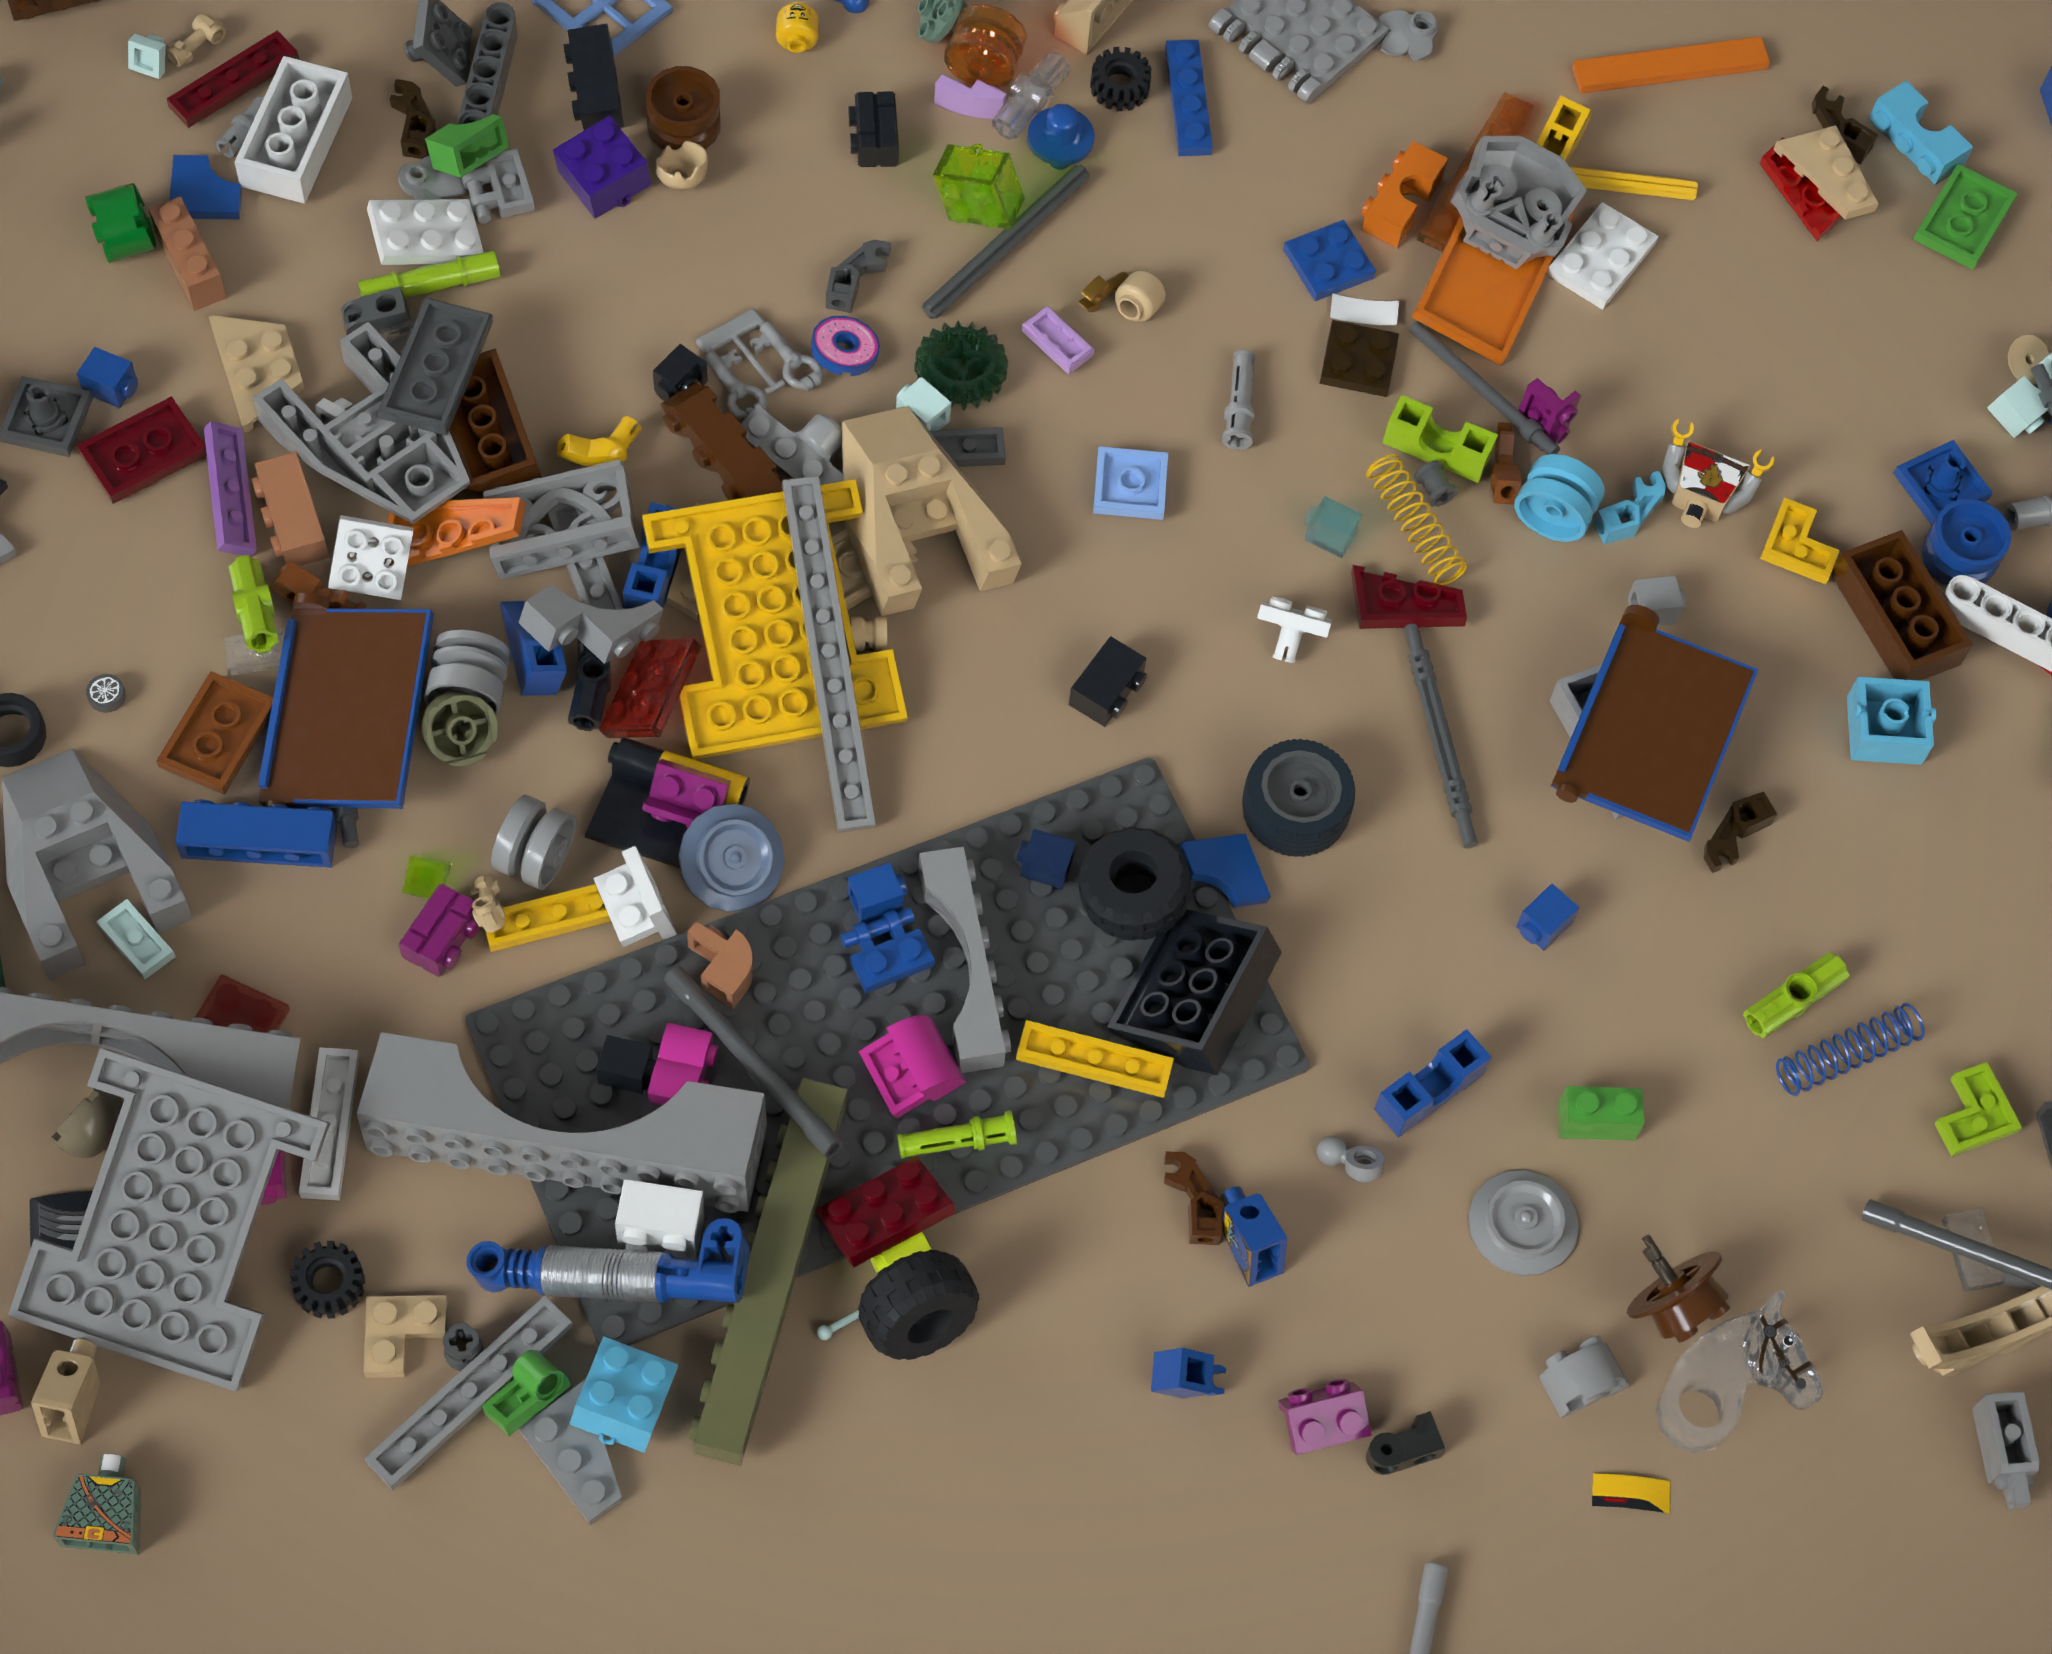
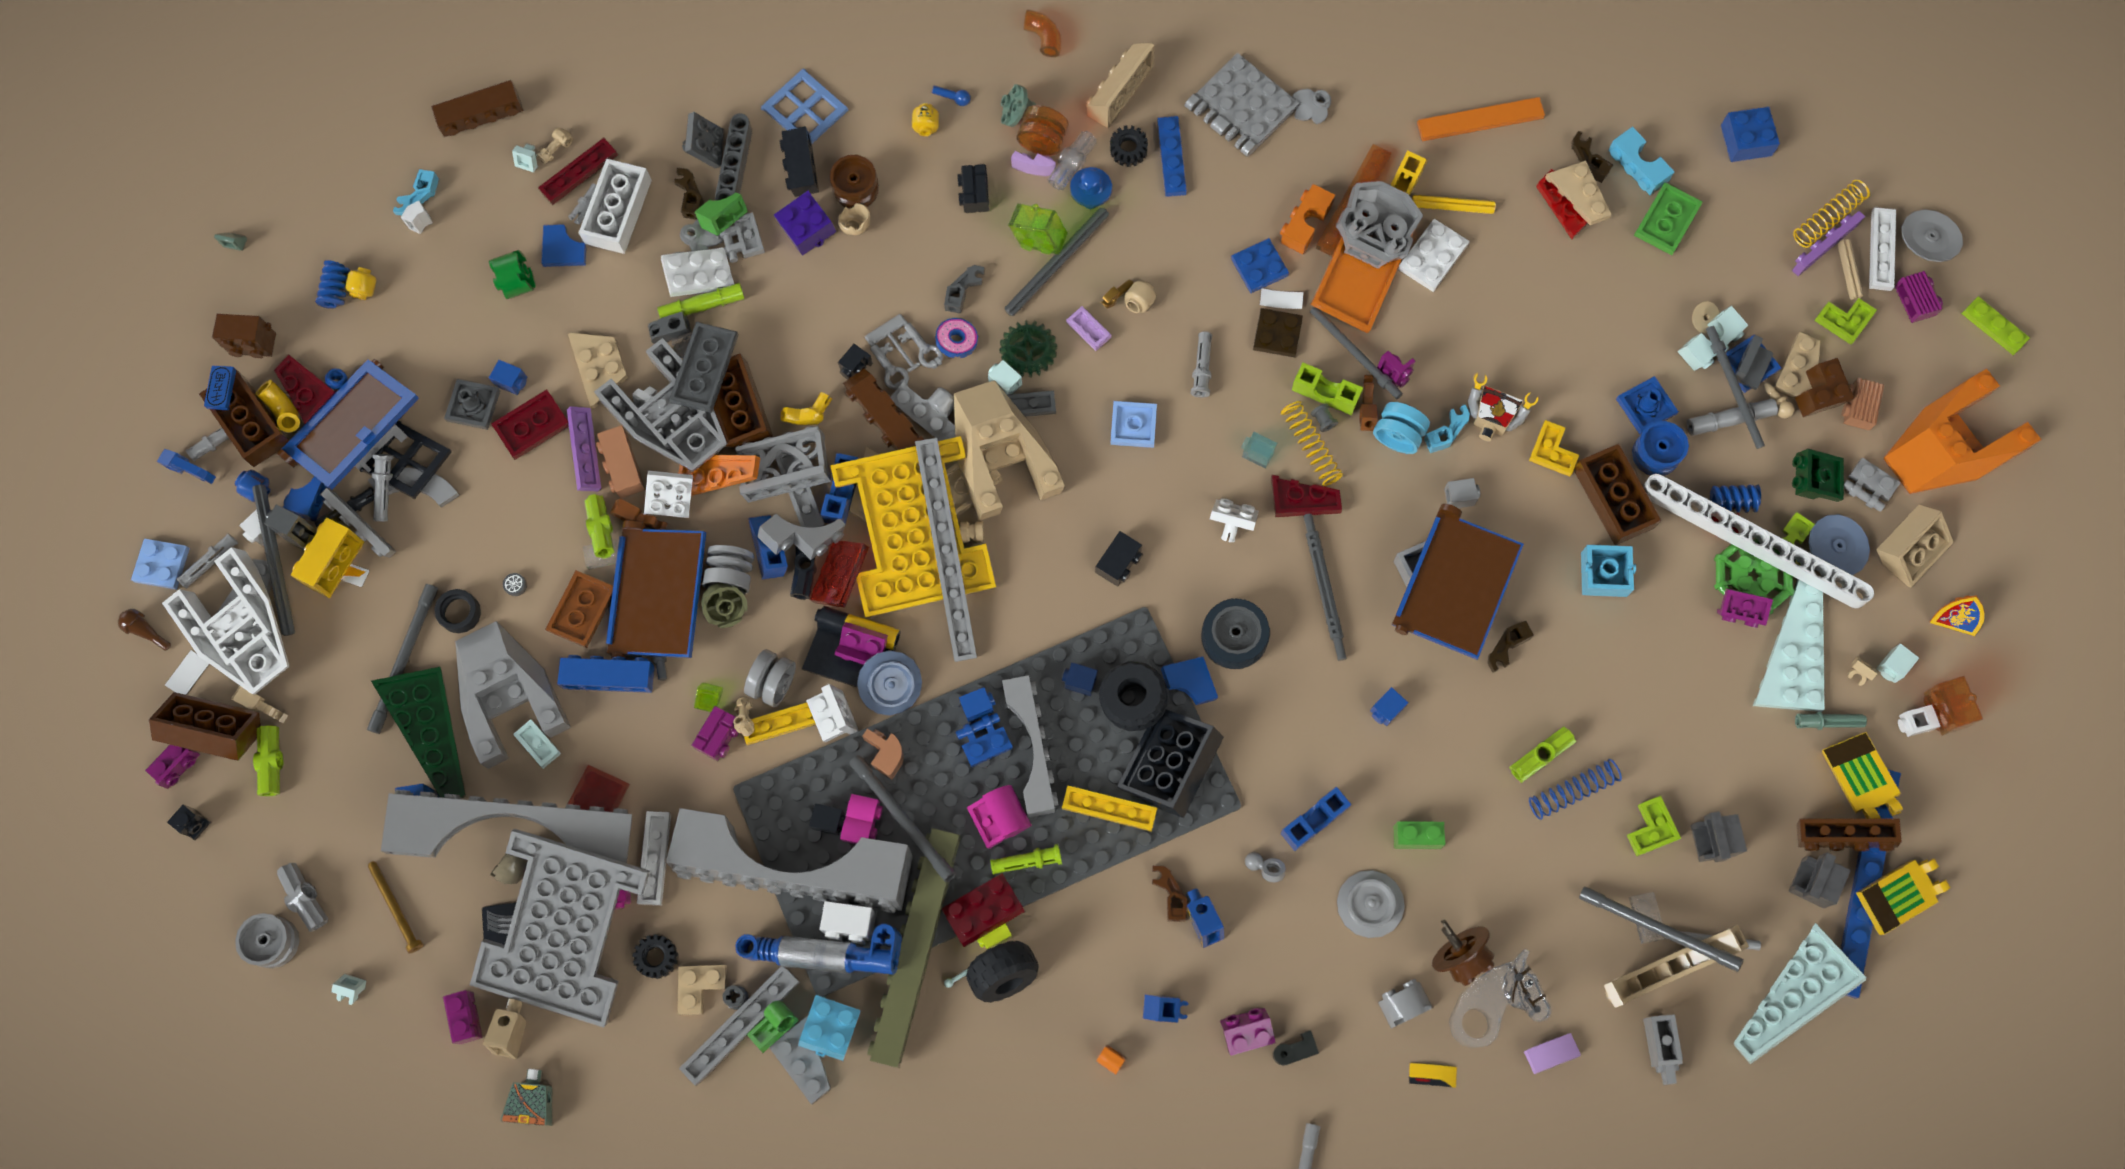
camera: 10 degrees right, 10 degrees up
(187, 253) = (553, 292): nougat brick -> none
(1098, 1456) = (1111, 1059): none -> orange brick
(1826, 1457) = (1552, 1053): none -> lavender slope

